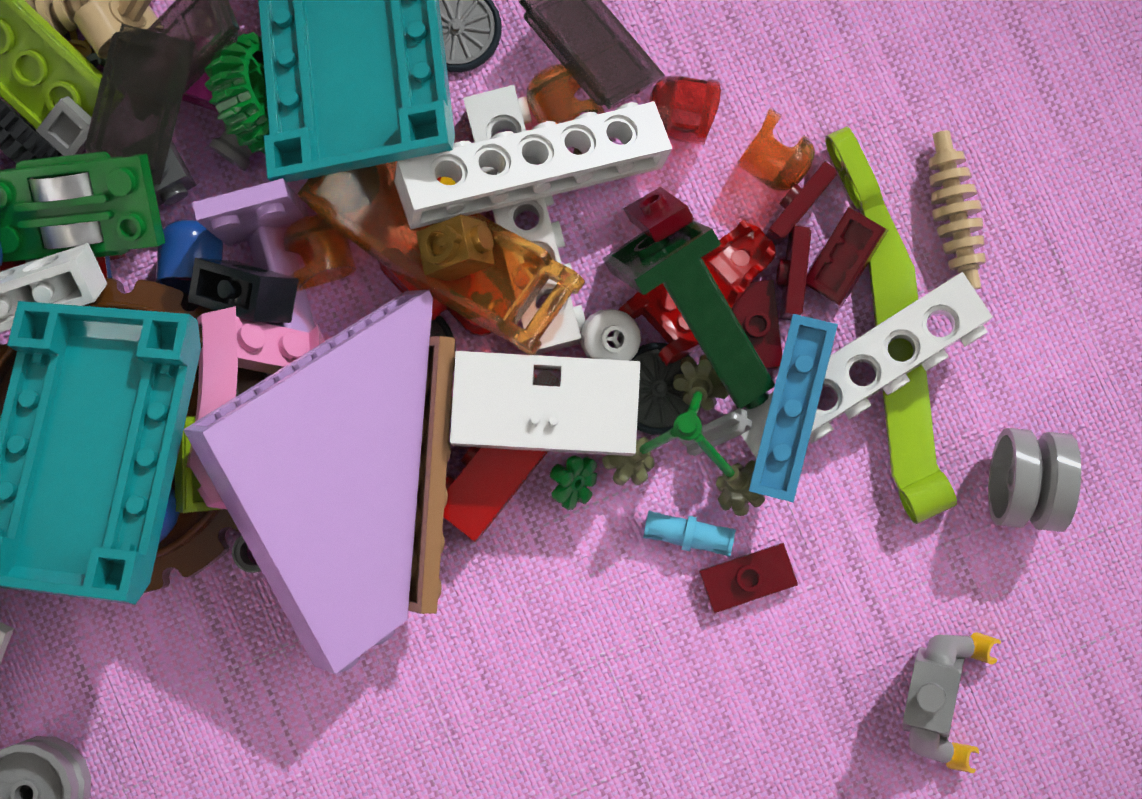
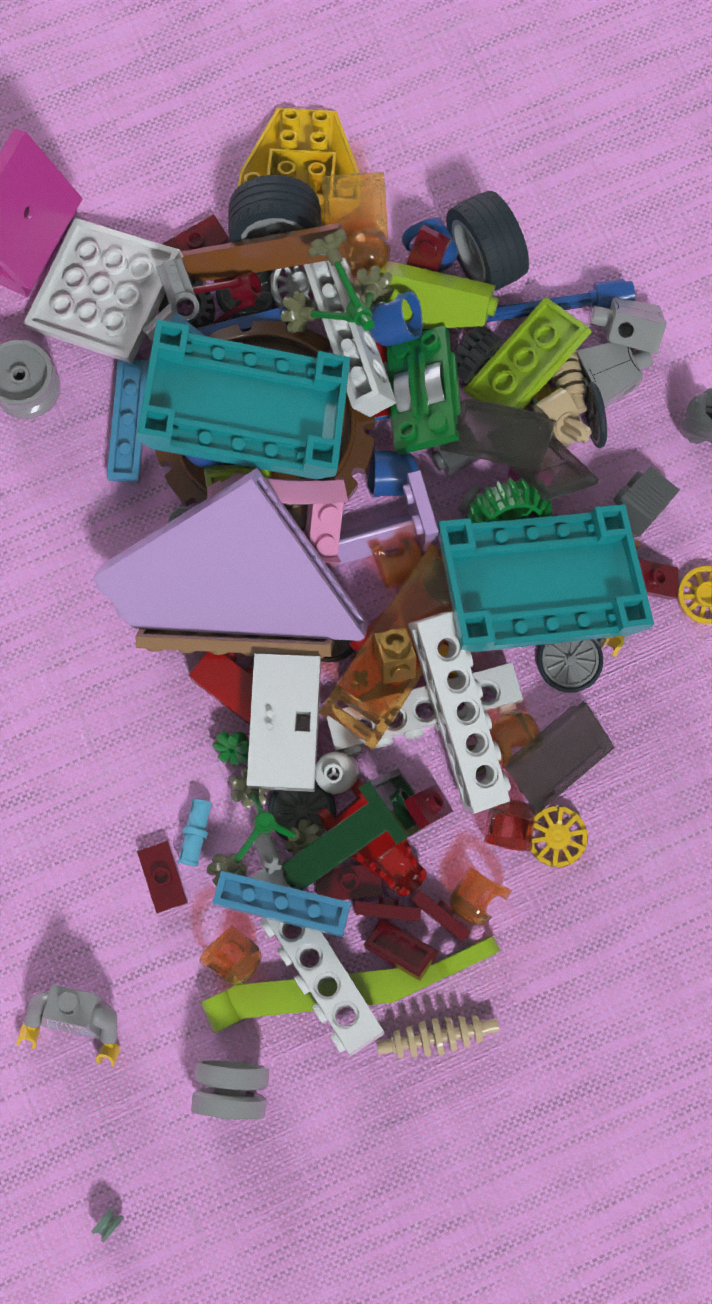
camera: 90 degrees right, 5 degrees down
(66, 127) = (483, 386): light grey tile -> none
(99, 634) = (124, 449): none -> dark azure plate
(254, 291) = (366, 510): black brick -> none
(695, 49) = (558, 836): none -> yellow wheel
(857, 478) = (232, 956): none -> clear orange helmet

